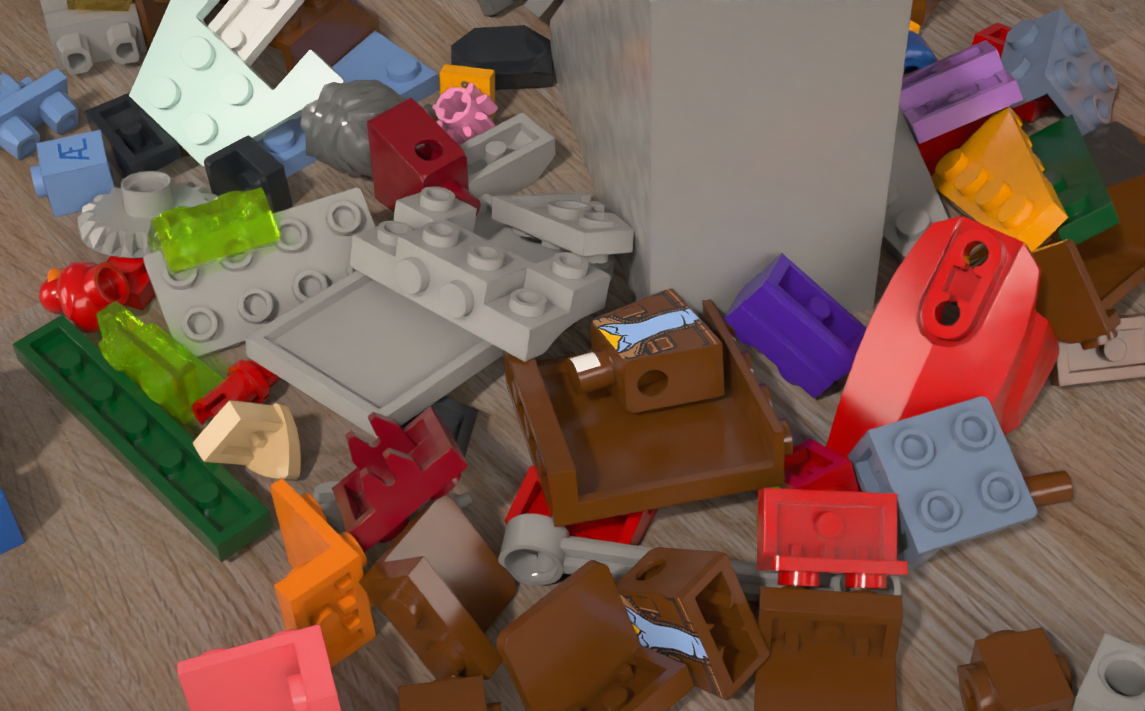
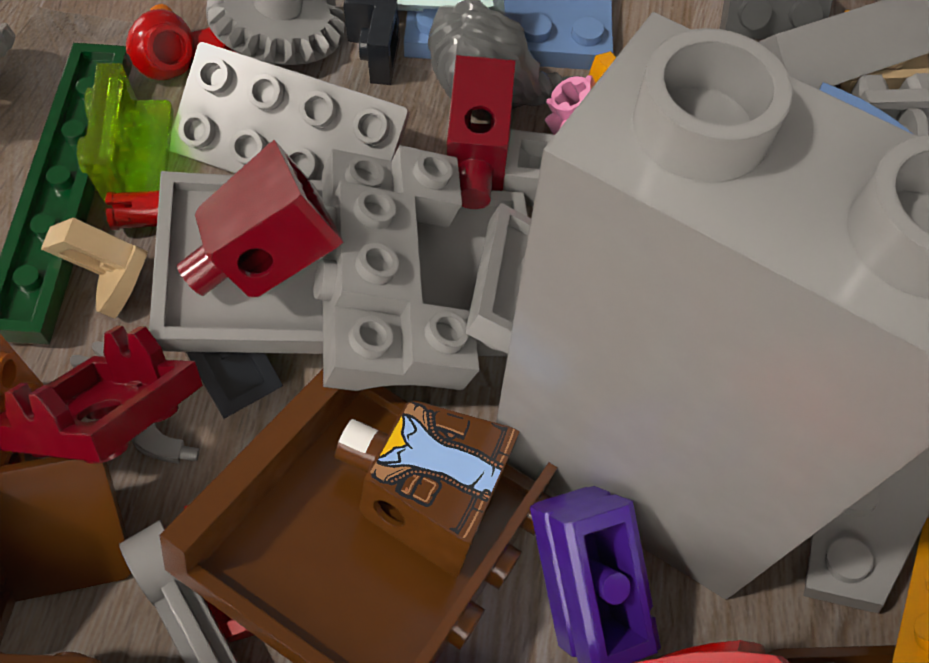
camera: 40 degrees right, 15 degrees up
(213, 231) = (258, 62): clear neon green bracket -> none
(382, 294) = (260, 227): none -> dark red torso

